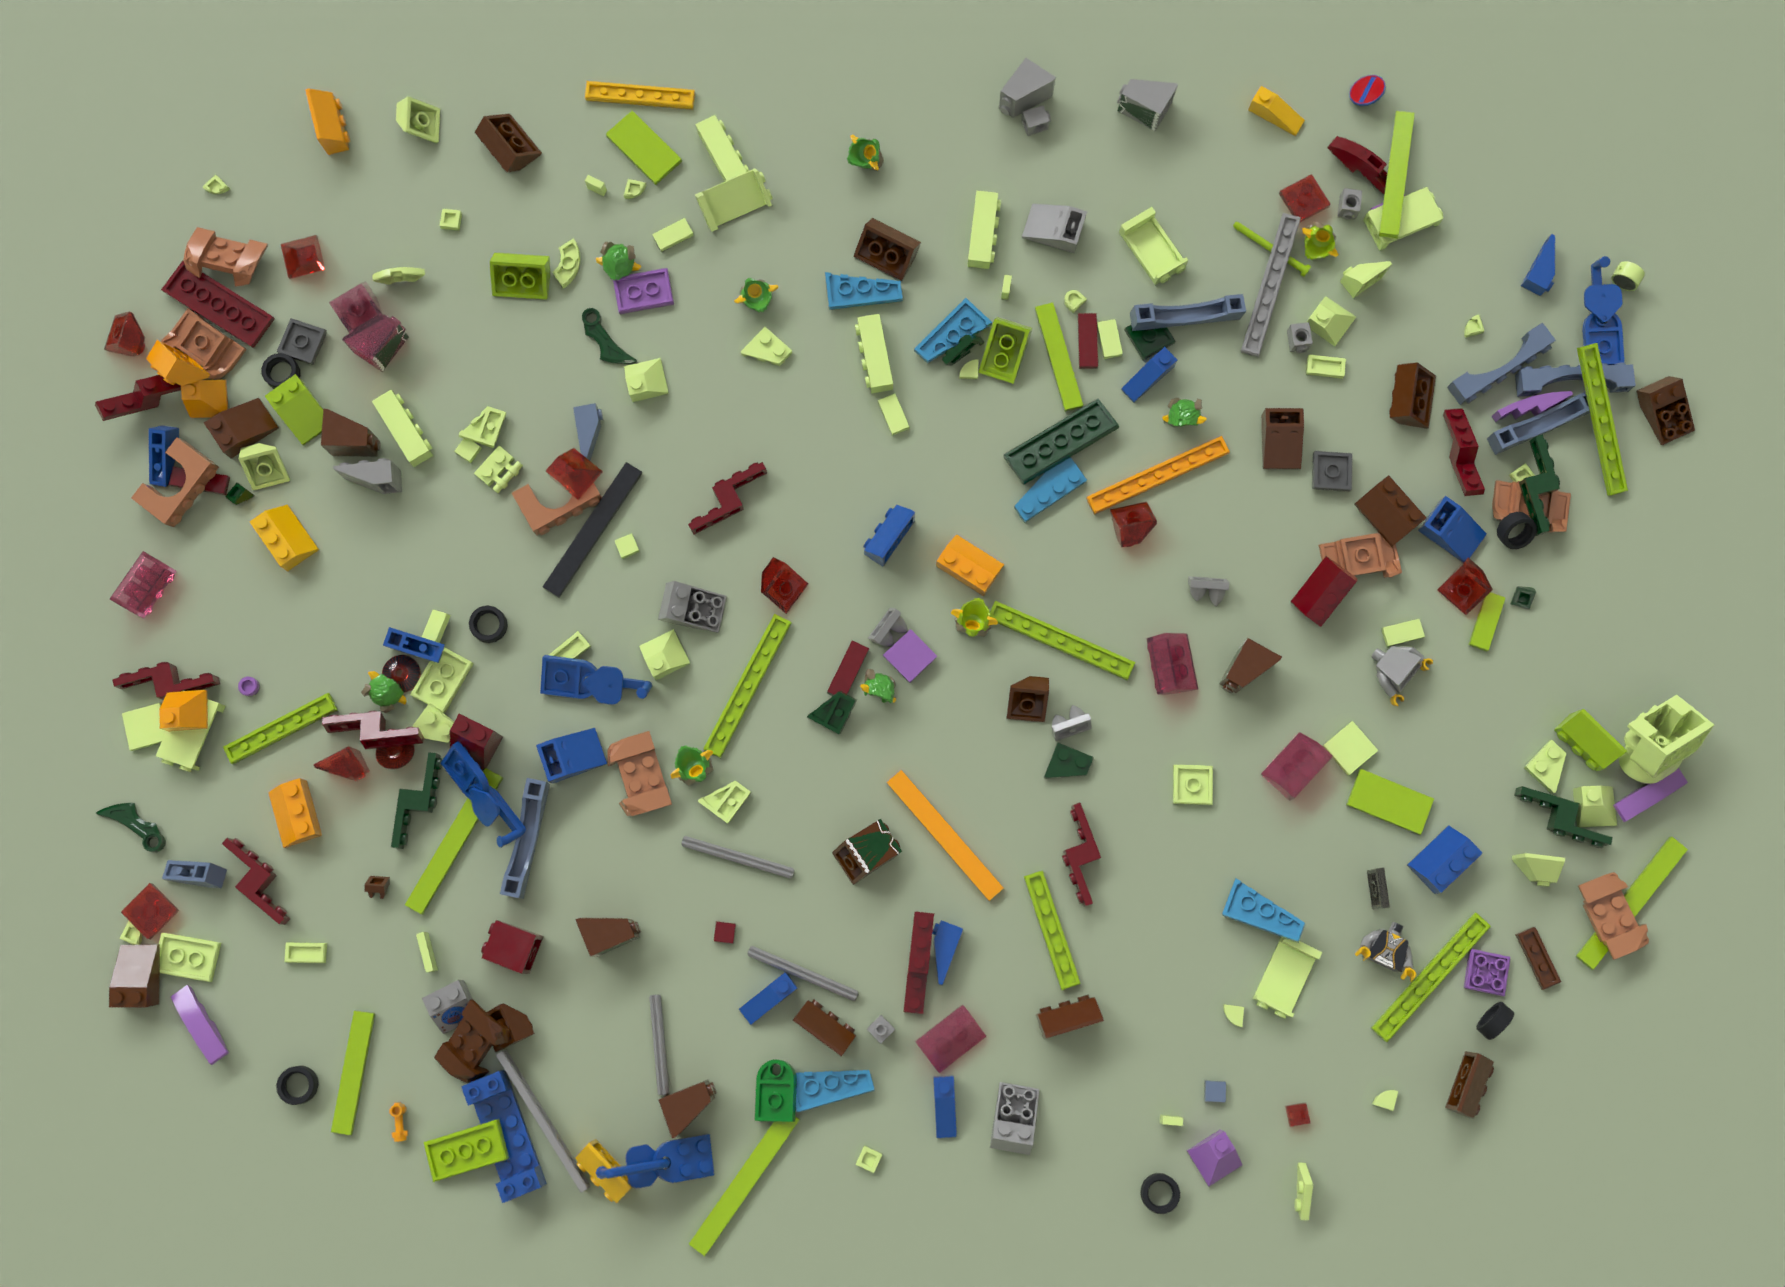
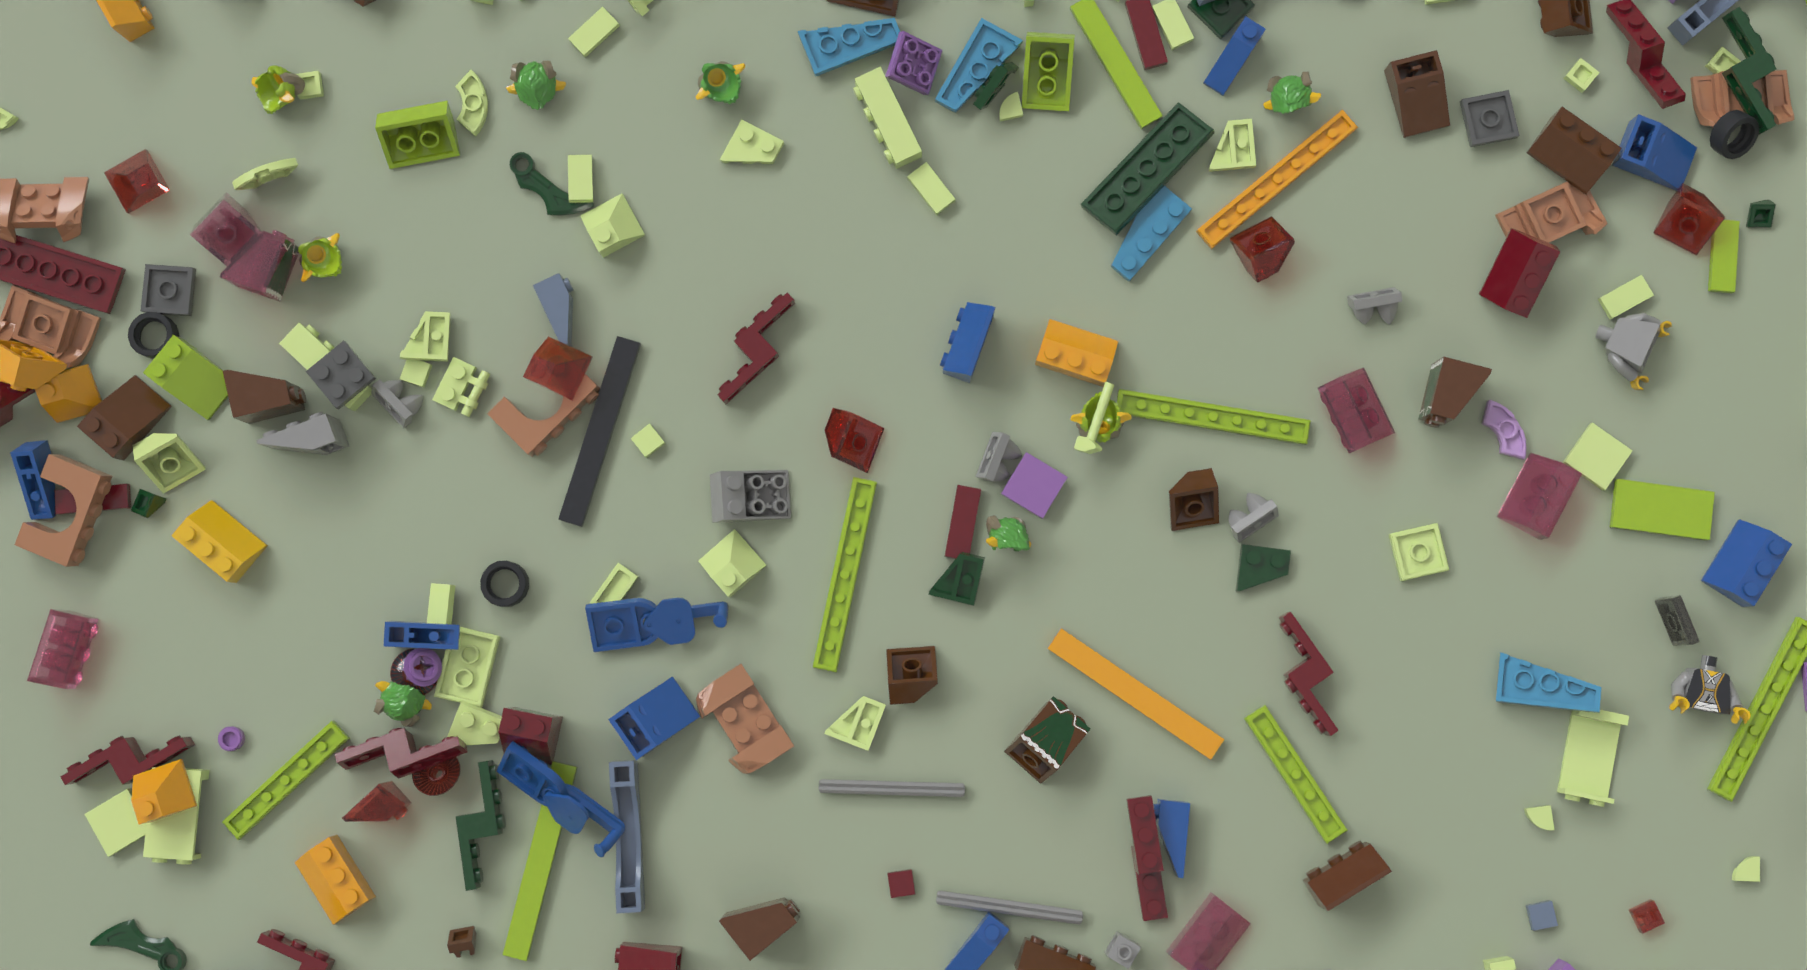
camera: 10 degrees left, 5 degrees up
(410, 435) = (341, 375): none -> dark grey plate
(414, 665) = (428, 658): none -> medium lavender gear
(421, 346) = (320, 257): none -> lime hair
(426, 214) = (277, 88): none -> lime hair
(441, 462) = (401, 410): none -> light grey tile
(631, 339) = (580, 179): none -> yellowish green tile
(643, 291) = (577, 113): medium lavender tile -> none
(692, 765) = (805, 691): bright green hair -> none
(775, 773) = (910, 673): none -> reddish brown slope
(905, 318) = (913, 63): none -> medium lavender tile
(958, 634) = (1089, 444): none -> yellowish green piece
(1132, 442) = (1235, 147): none -> yellowish green wing
(1285, 709) = (1507, 429): none -> lavender tile
(1411, 457) = (1581, 75): none -> yellowish green tile

